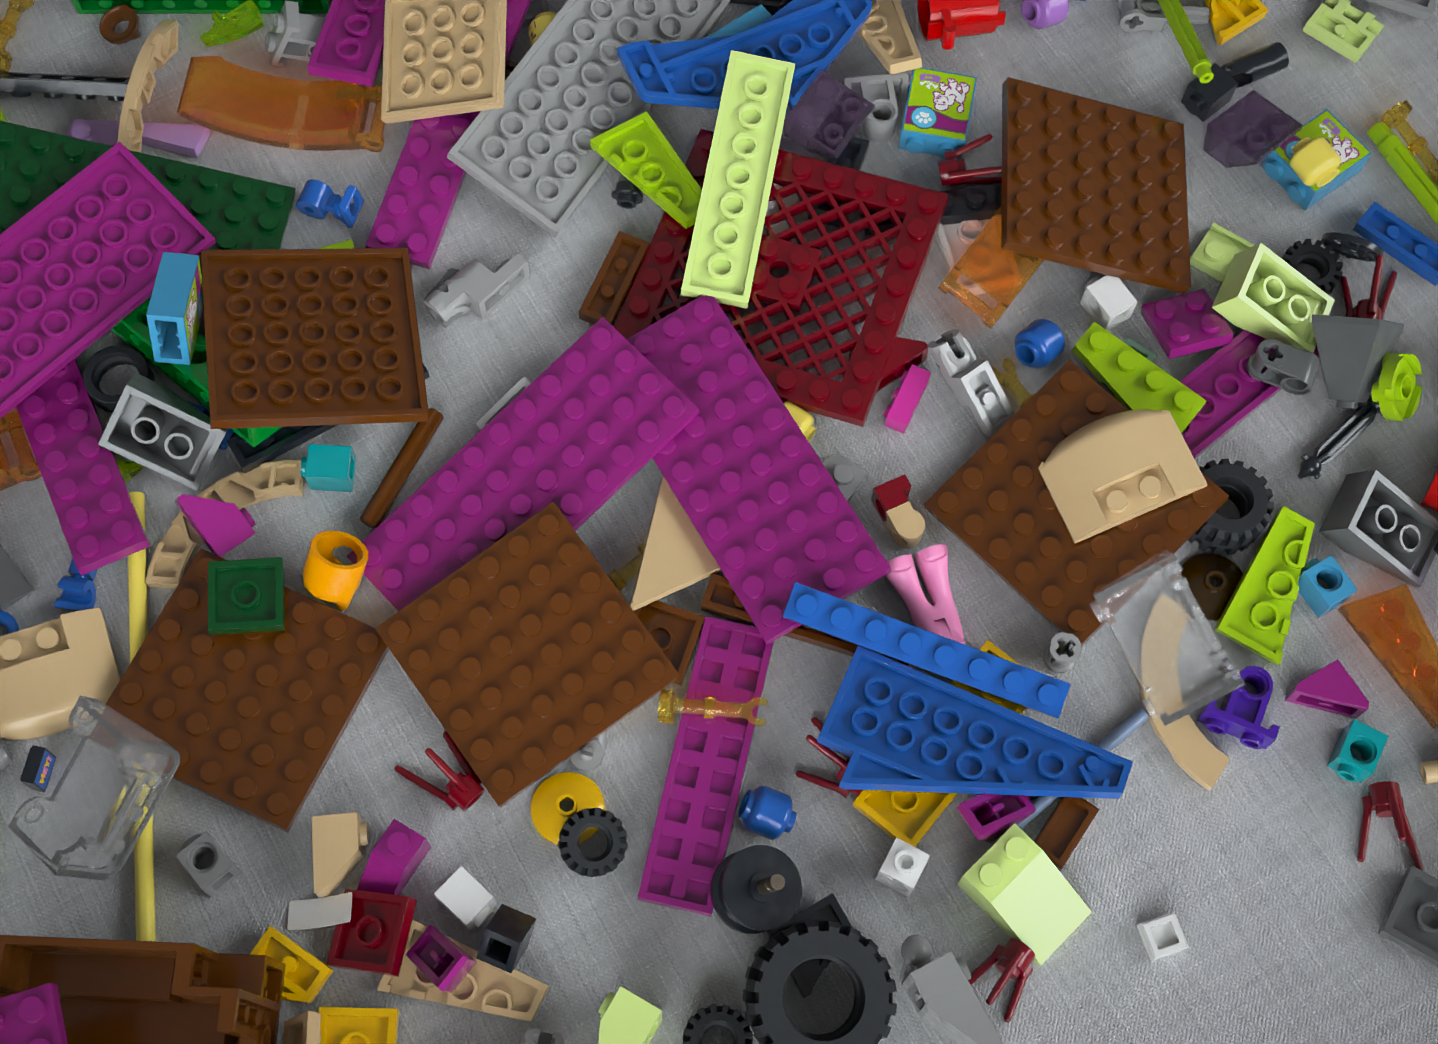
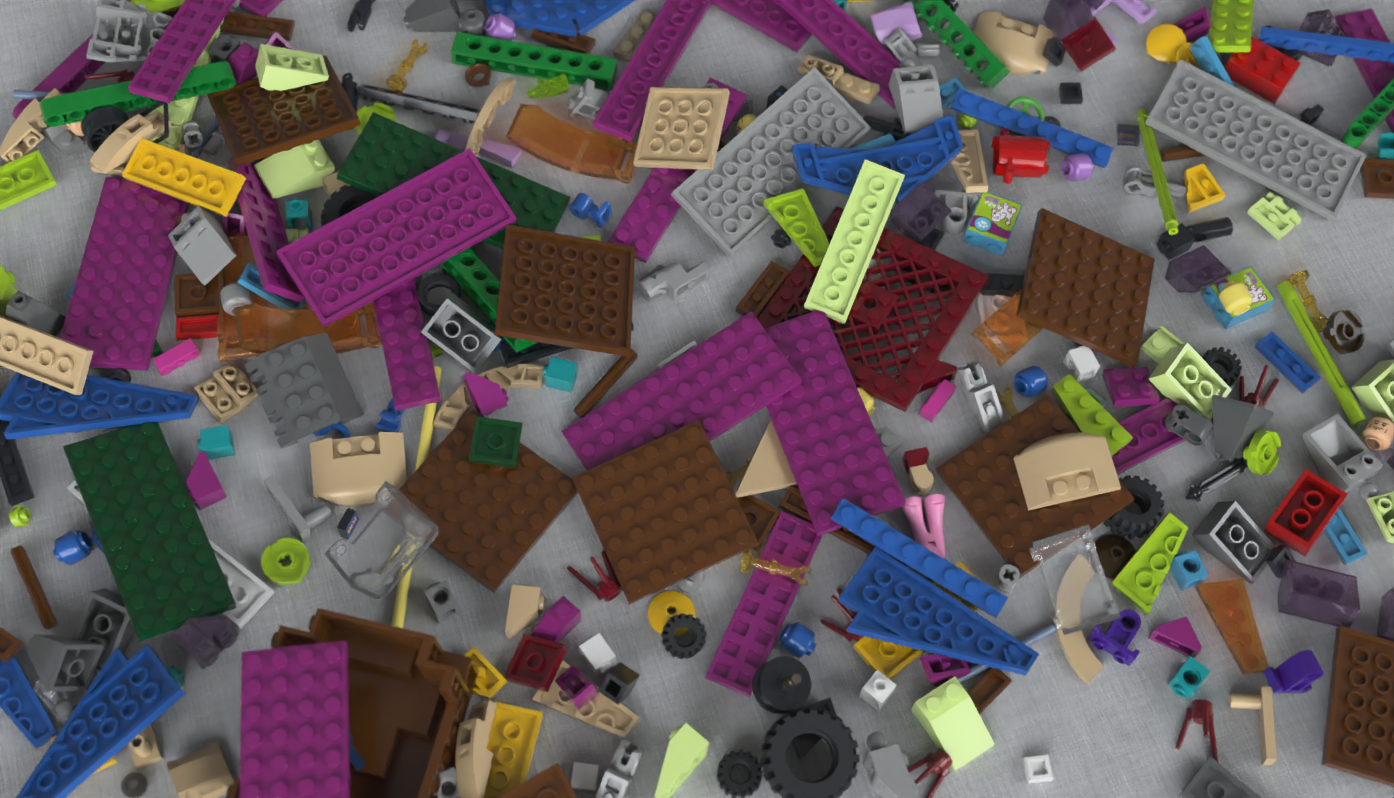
camera: 10 degrees right, 5 degrees down
(176, 308) = (485, 257): dark azure brick -> none
(319, 912) = (505, 645): white sticker -> none
(326, 576) = (549, 442): light orange piece -> none
(954, 171) = (996, 261): dark red plant -> none
(1352, 246) = (1249, 357): black wheel -> none

